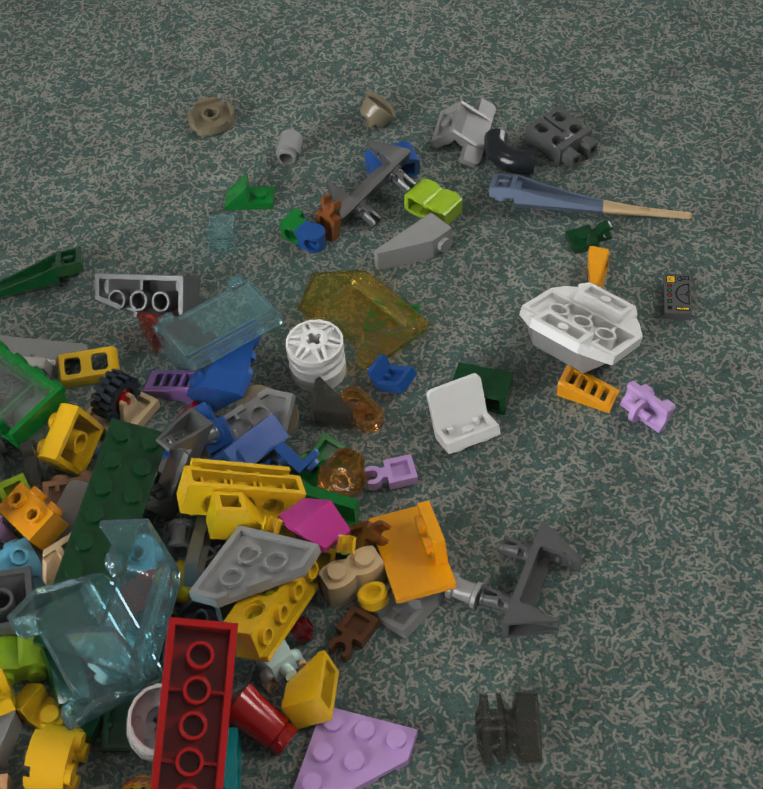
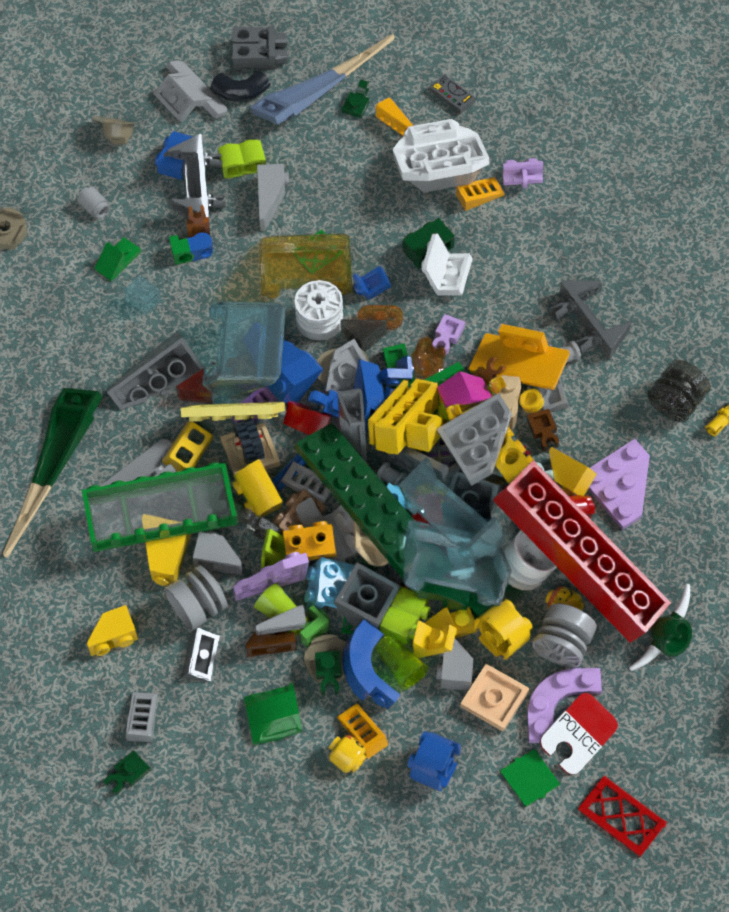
camera: 55 degrees left, 10 degrees up
(141, 364) = (227, 411): none -> light yellow plate

